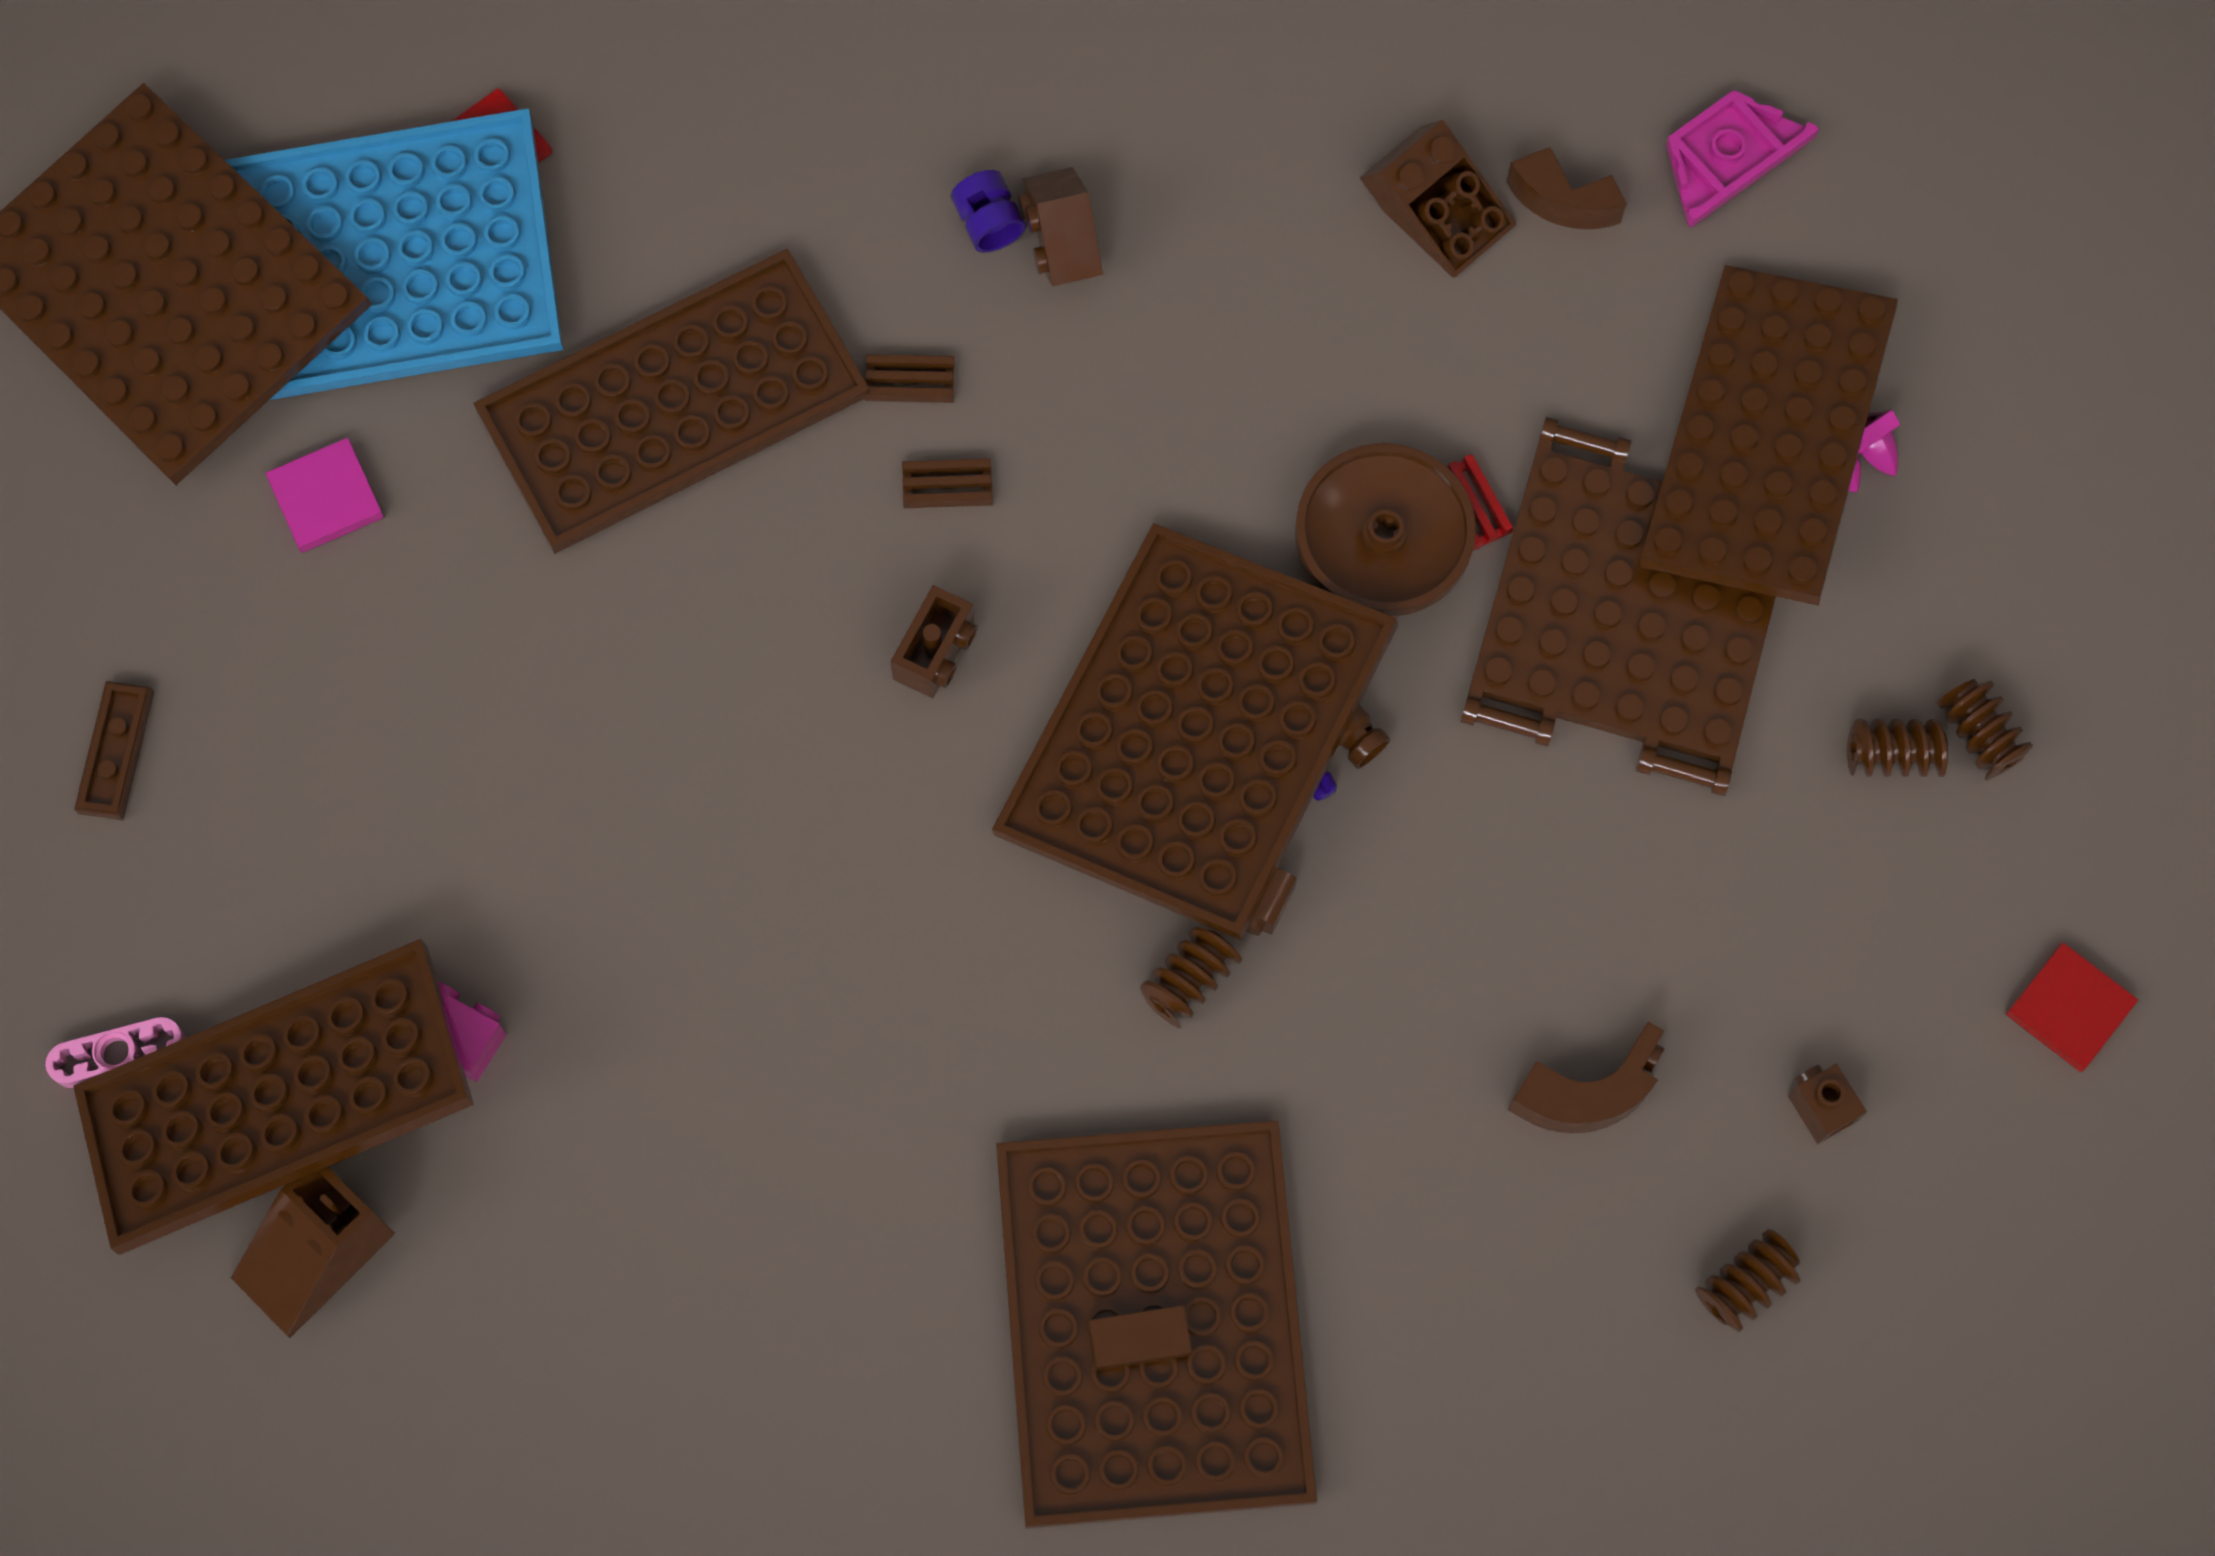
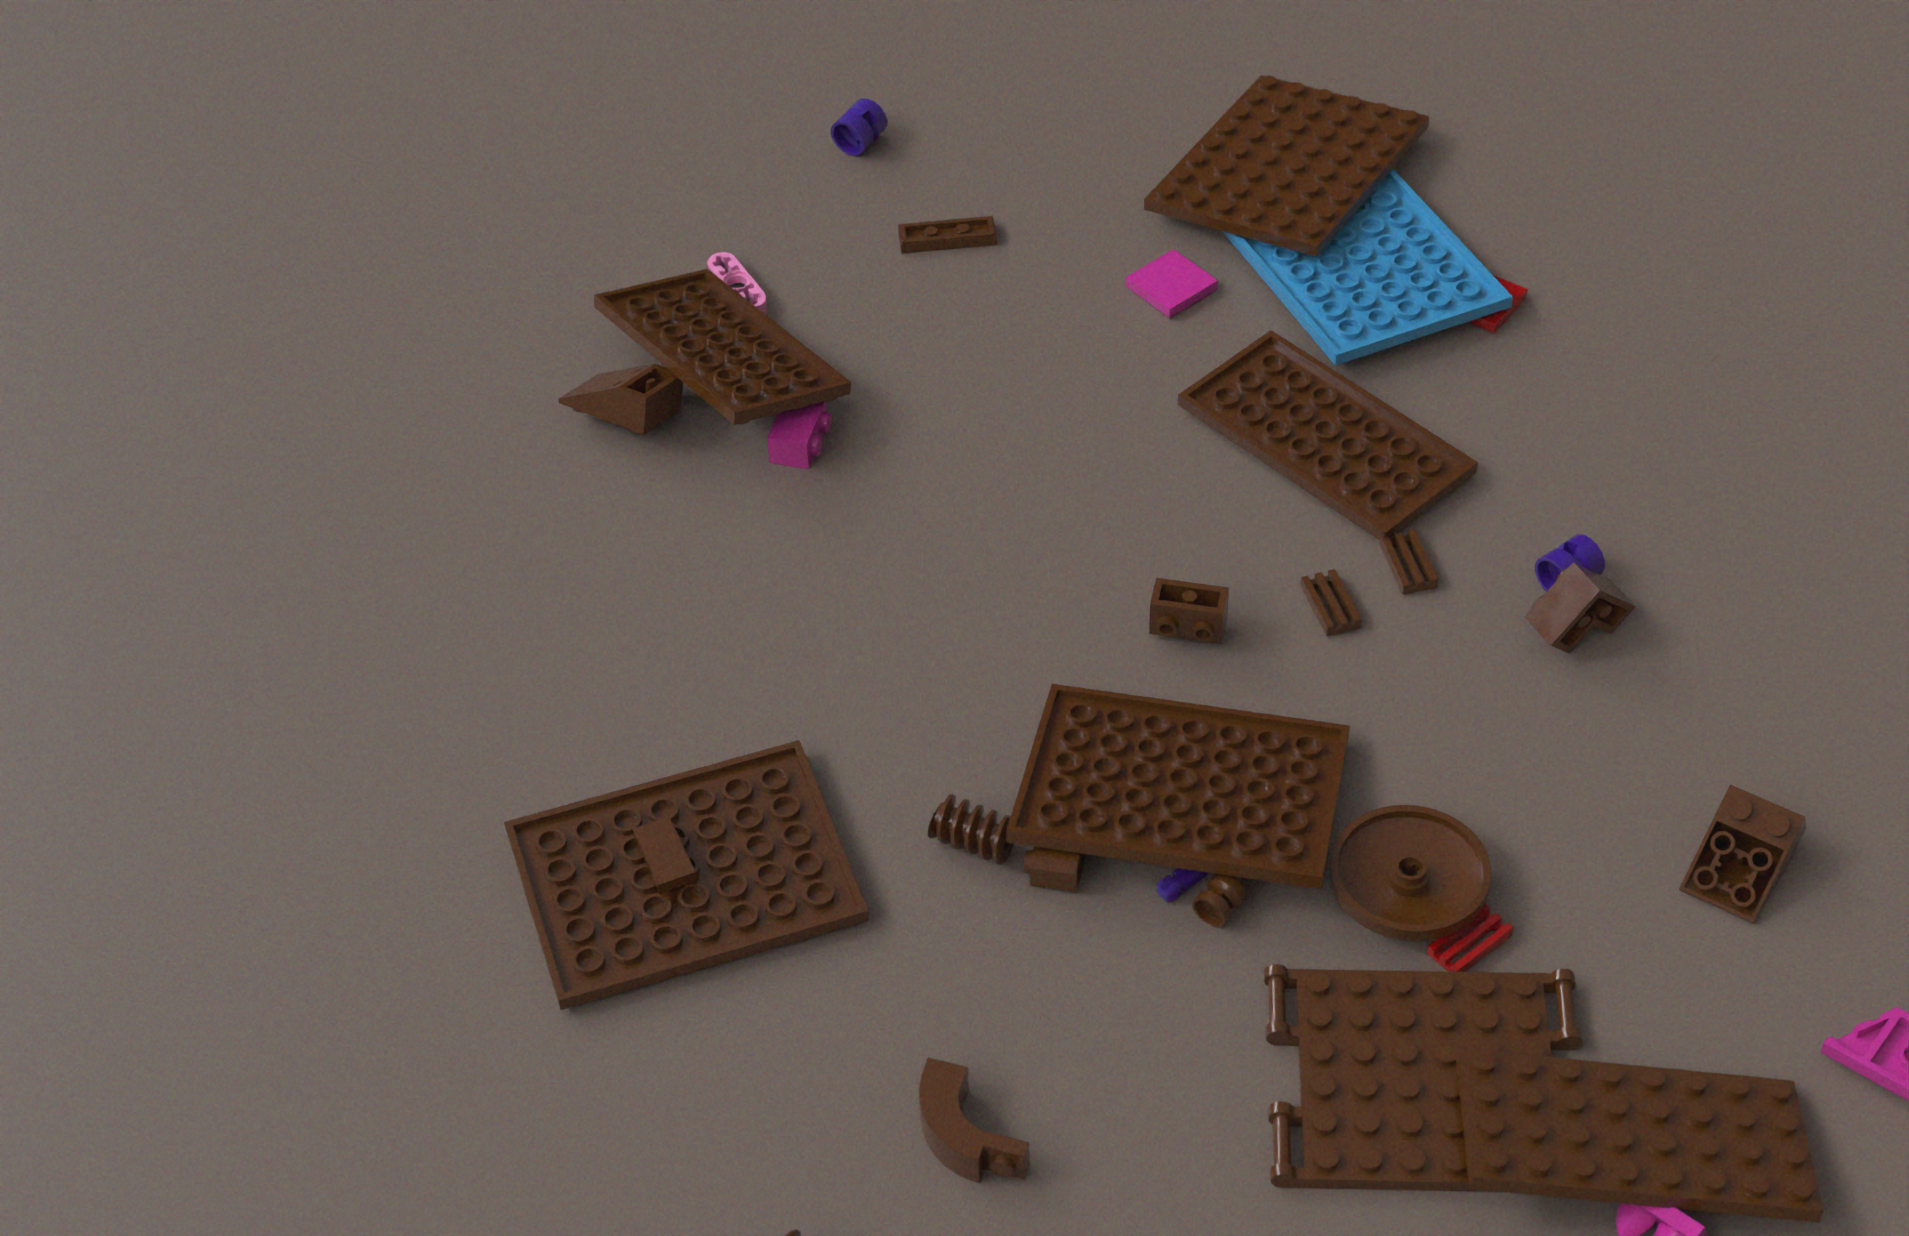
camera: 80 degrees right, 25 degrees down
(1545, 191) = (1798, 926): reddish brown brick -> none

